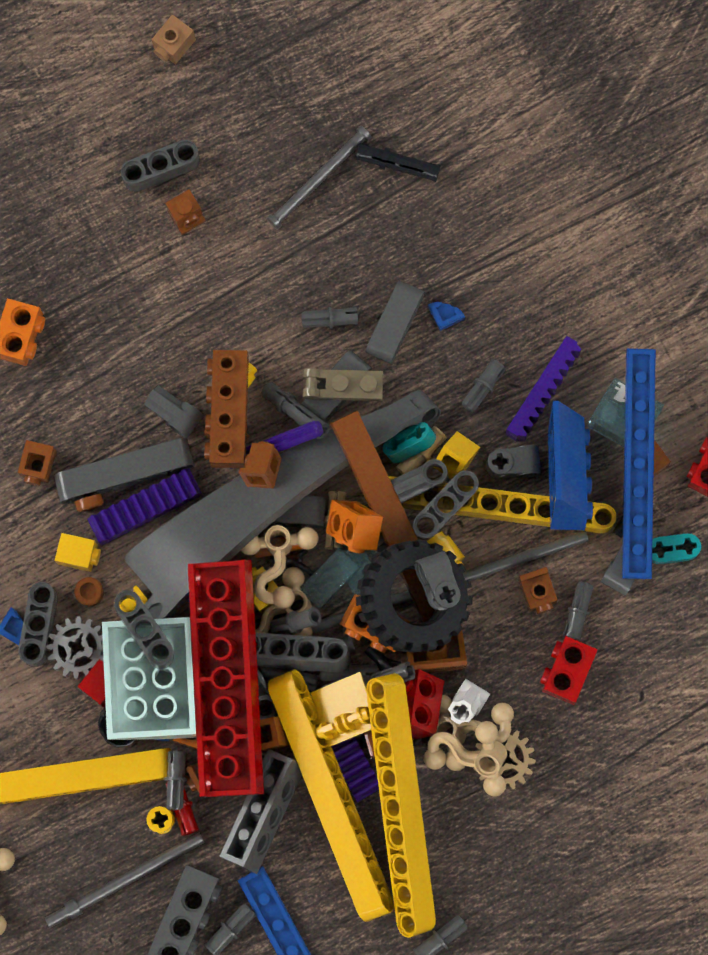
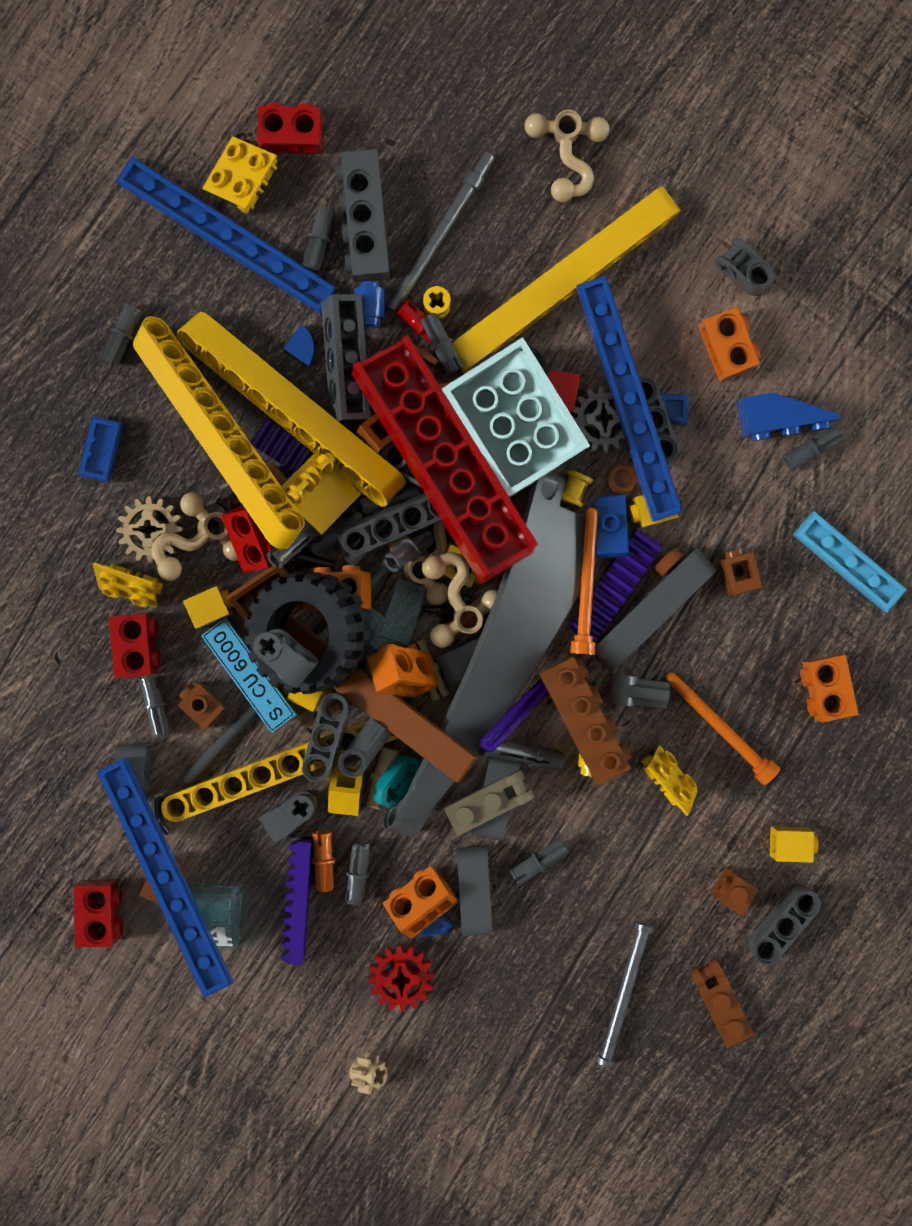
camera: 145 degrees right, 10 degrees up
(47, 650) = (629, 398): none -> blue tile
(107, 296) = (763, 769): none -> orange piece
(117, 224) = (793, 844): none -> yellow brick
(119, 555) = (612, 526): none -> blue plate
(142, 615) = (533, 445): dark grey beam -> none
(173, 40) = (841, 1056): medium nougat brick -> none
(184, 318) = (678, 788): none -> yellow hinge
(195, 473) = (583, 642): none -> orange piece
(212, 849) = (373, 303): none -> blue brick
(245, 129) = (722, 1004): none -> dark orange plate
(261, 465) = (522, 680): dark orange brick -> none
(293, 847) = (301, 346): none -> blue tile
(398, 162) = (556, 1049): black pin -> none
(442, 328) = (424, 909): none -> orange brick
(467, 702) = (209, 563): white piece -> none
(482, 280) = (389, 977): none -> red gear
(486, 594) = (233, 655): none -> medium azure tile
(486, 733) = (160, 515): tan piece -> none
(488, 668) = (208, 607): none -> yellow brick
(506, 411) = (323, 860): none -> orange axle
(510, 850) = (101, 449): none -> blue plate
(557, 729) = (116, 582): none -> yellow hinge
(560, 222) = (368, 1073): none -> tan gear
(568, 469) = (230, 834): blue slope -> none
(675, 555) = (90, 808): teal beam -> none

